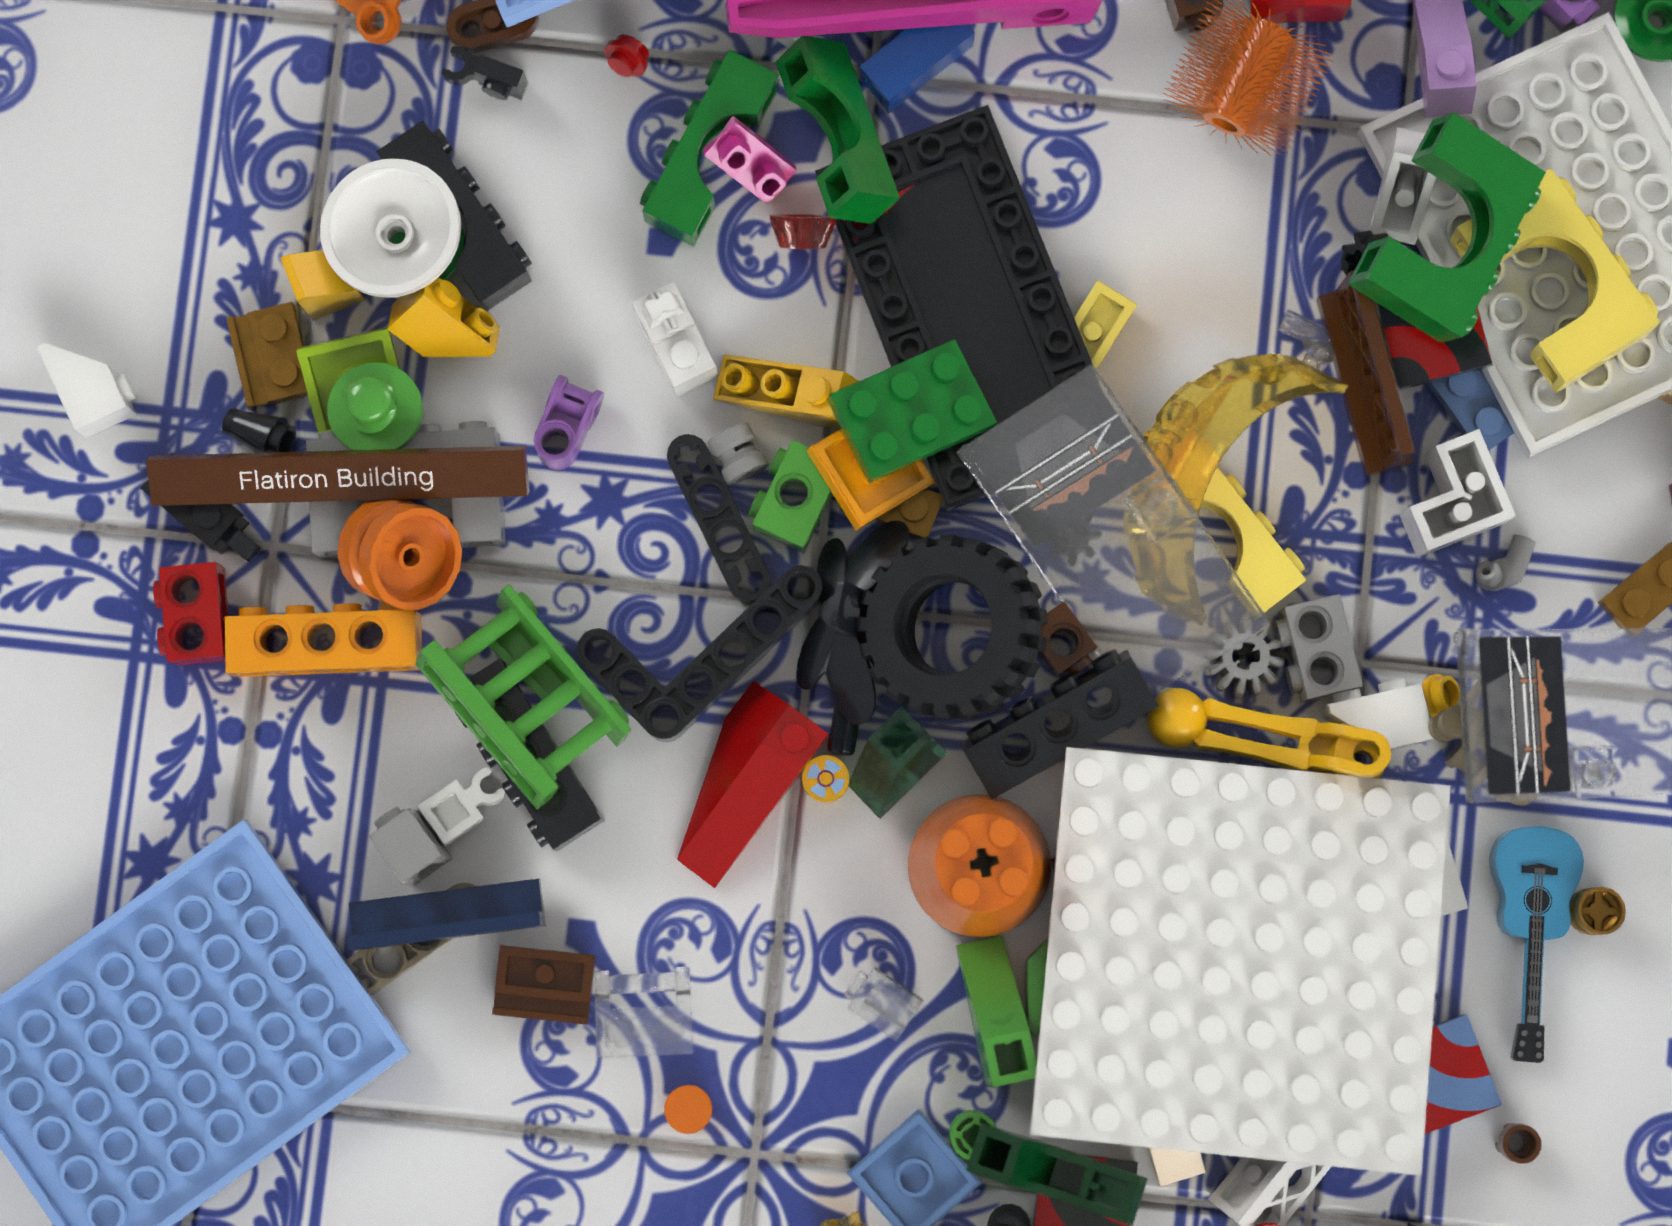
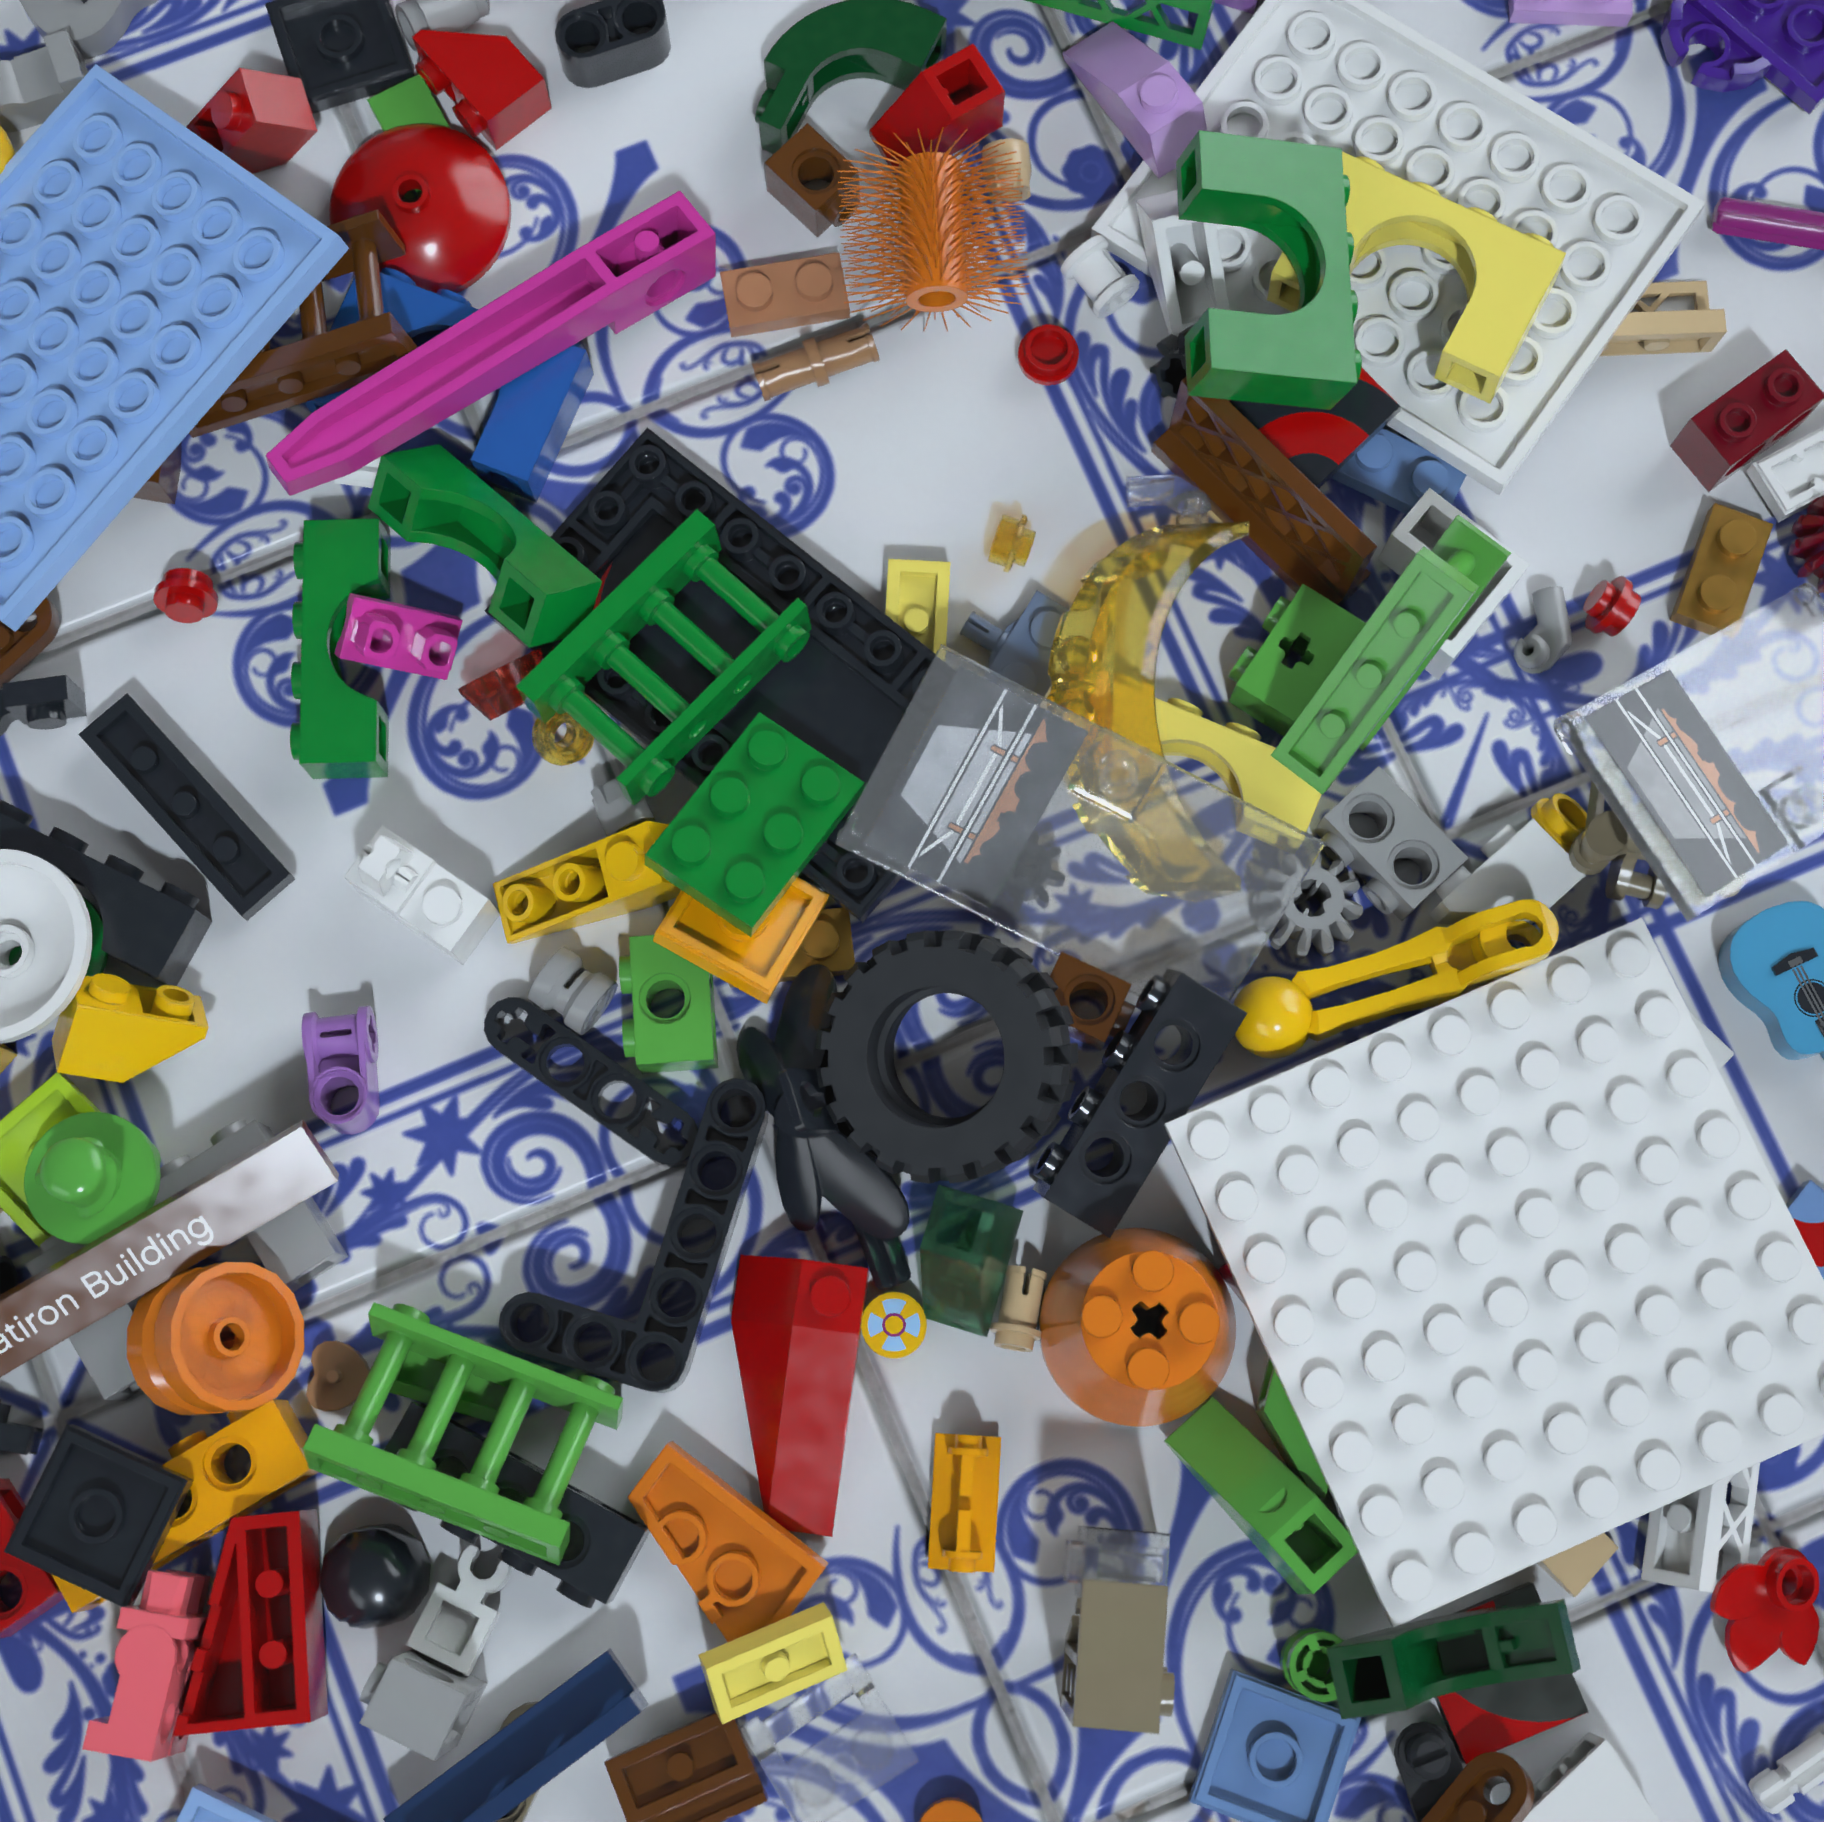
camera: 30 degrees left, 5 degrees down
(262, 735) = (153, 1668): none -> coral hips
(272, 622) = (98, 1516): none -> black tile
(335, 747) = (263, 1630): none -> red wedge
(419, 753) = (375, 1576): none -> black hair
(460, 617) = (337, 1376): none -> medium nougat piece
(555, 197) = (187, 807): none -> black plate
(636, 943) = (773, 1662): none -> light yellow plate
(645, 861) = (724, 1545): none -> orange wing
(809, 913) = (964, 1503): none -> light orange hinge
(826, 291) = (570, 749): none -> clear yellow plate
(833, 350) = (615, 811): none -> light grey hose
(850, 1053) = (1117, 1658): none -> dark tan wedge
(909, 815) = (1019, 1311): none -> tan pin
(924, 225) = (648, 598): none -> green fence
(1124, 119) = (816, 362): none -> medium nougat pin
(1129, 60) = (785, 294): none -> nougat plate
(1151, 387) = (1024, 646): none -> sand blue plate
(1185, 312) = (1011, 542): none -> clear yellow plate
(1282, 197) = (1048, 355): none -> red plate
(1336, 46) = (1022, 155): none -> tan hose
(1347, 162) = (1100, 276): none -> white bush
(1355, 489) = (1310, 628): none -> bright green brick
(1383, 526) = (1390, 653): none -> bright green fence
(1560, 572) = (1611, 606): none -> red plate

